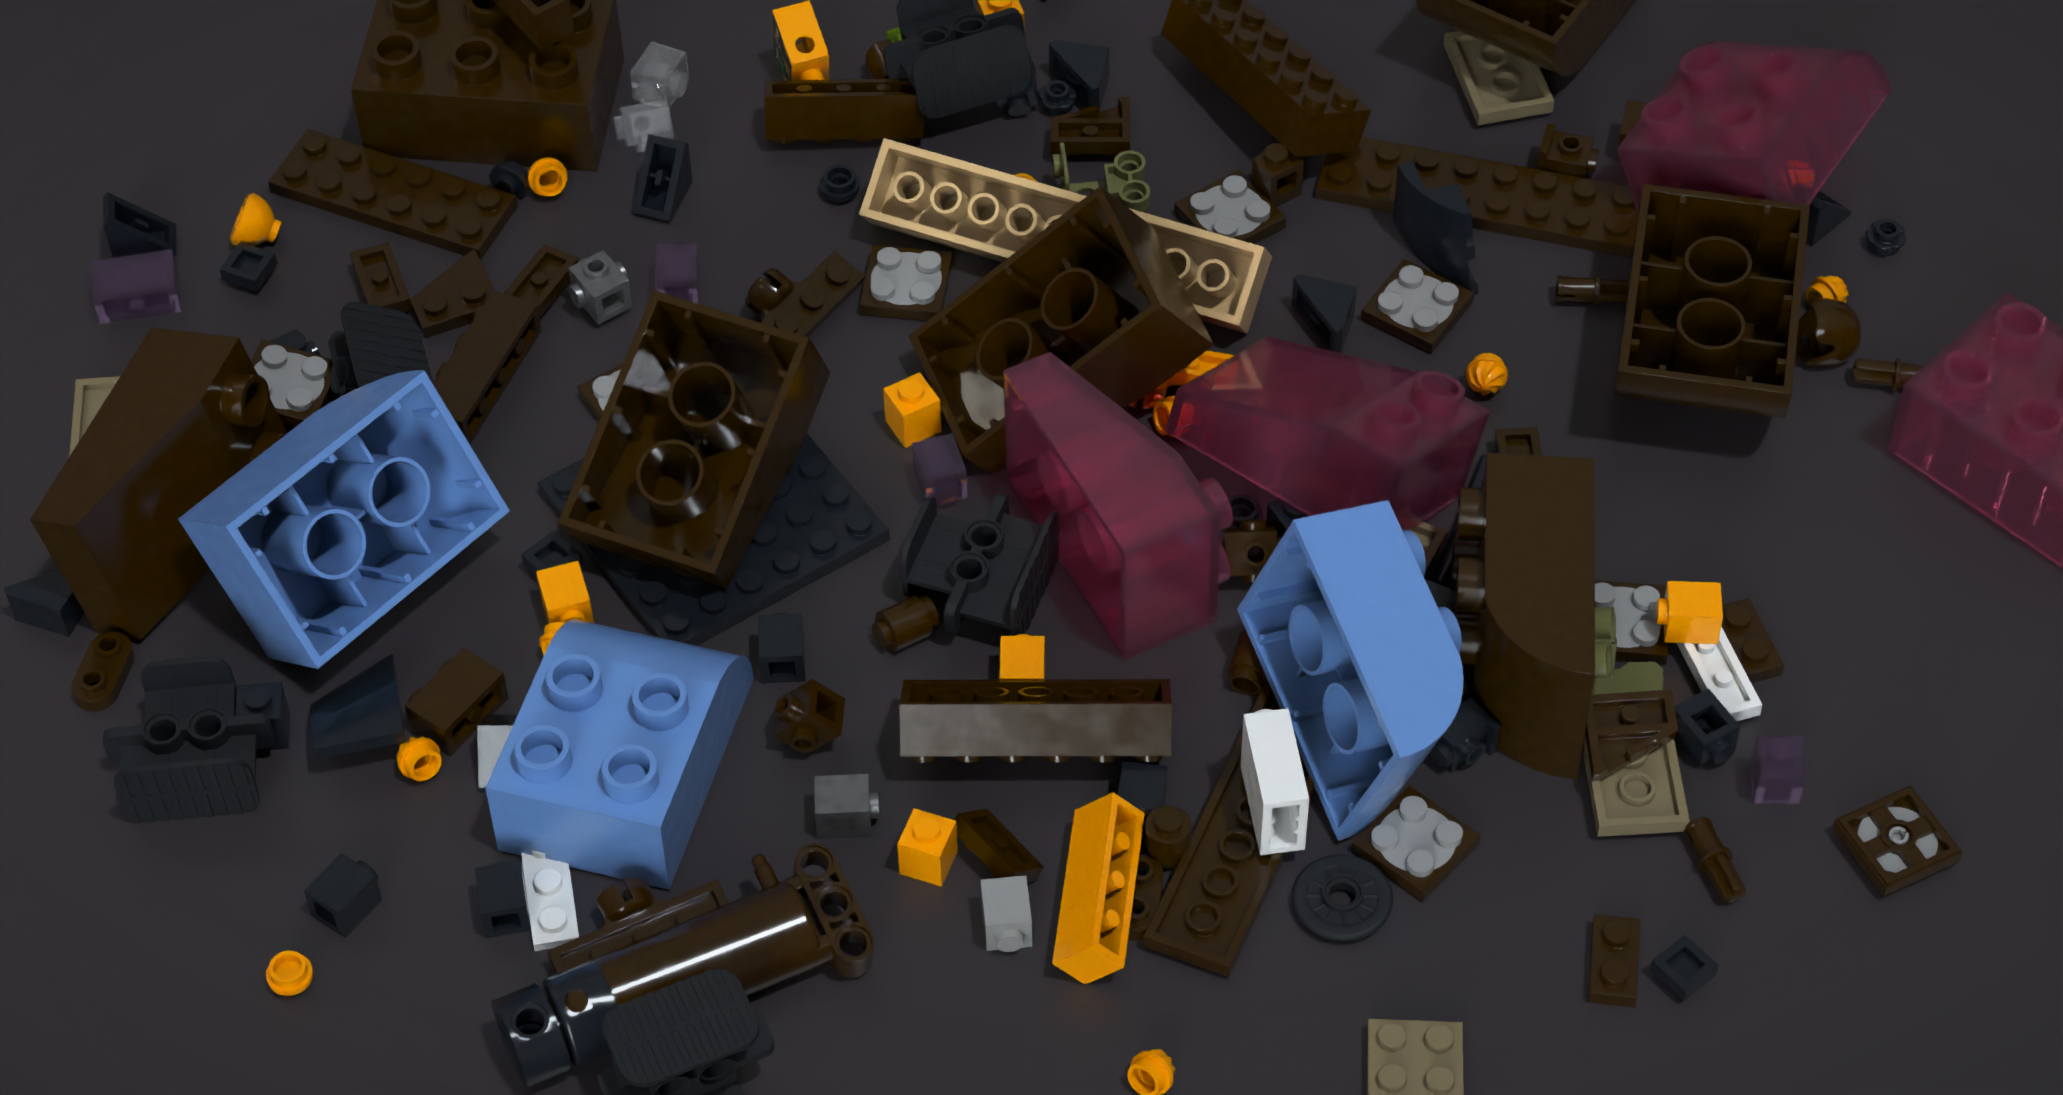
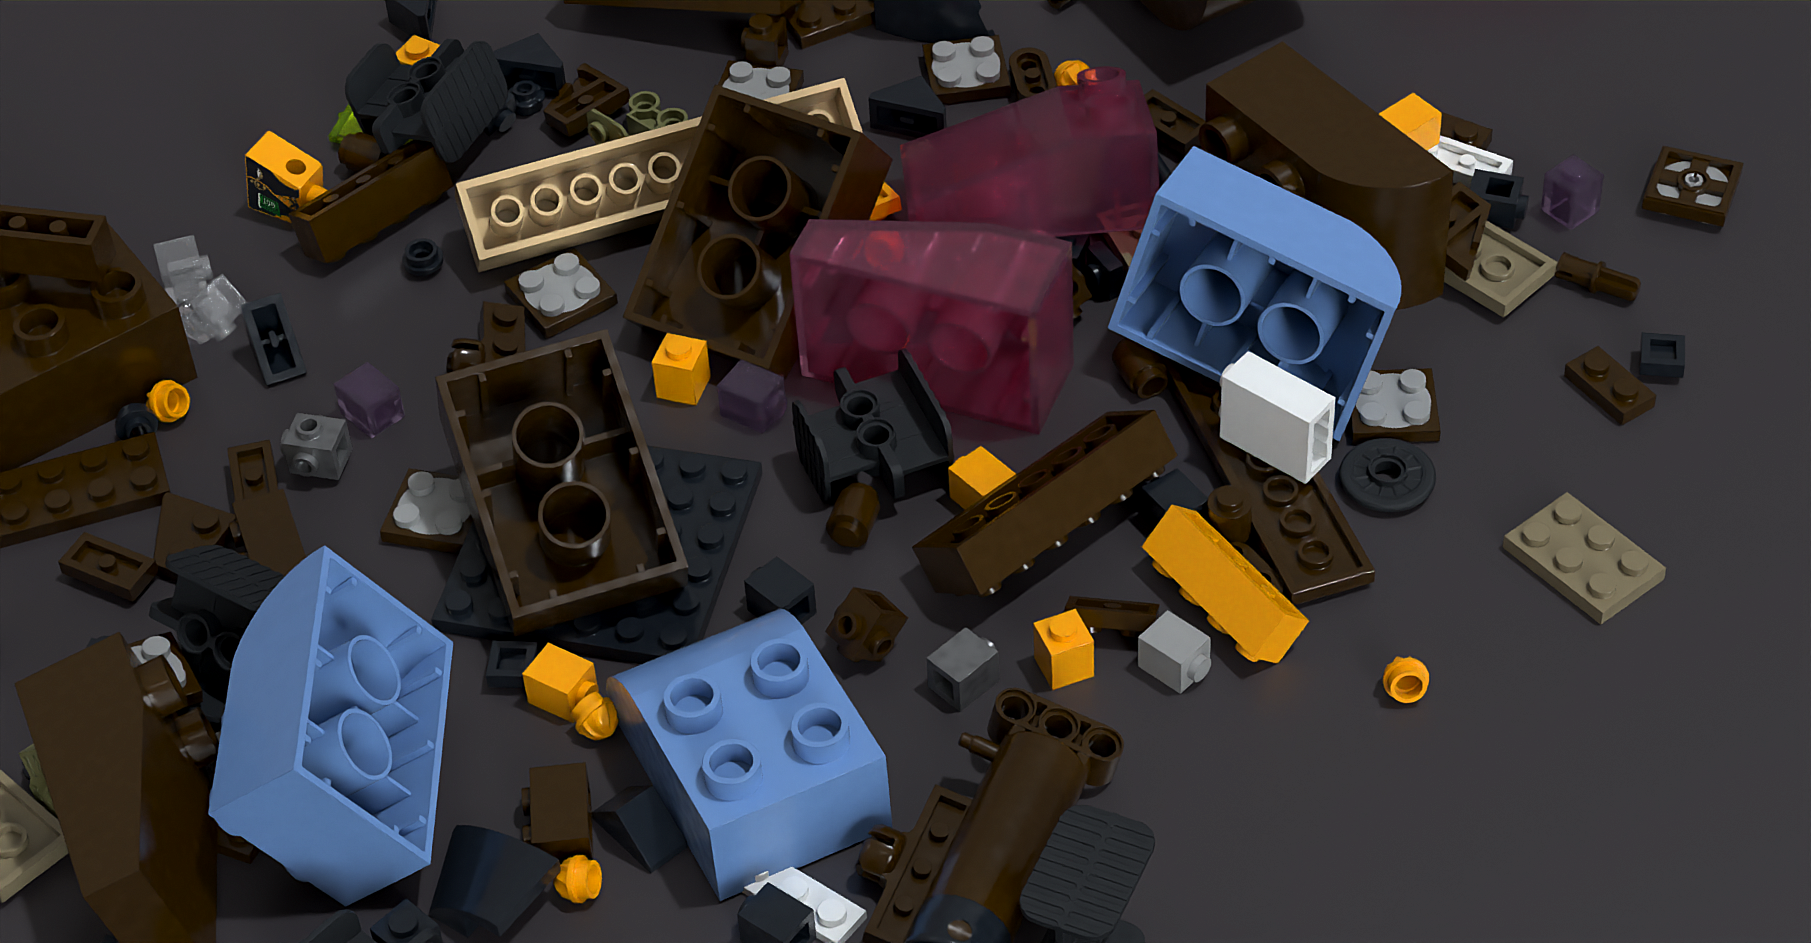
camera: 40 degrees left, 5 degrees down
(1450, 351) = (1030, 72): none -> dark brown plate

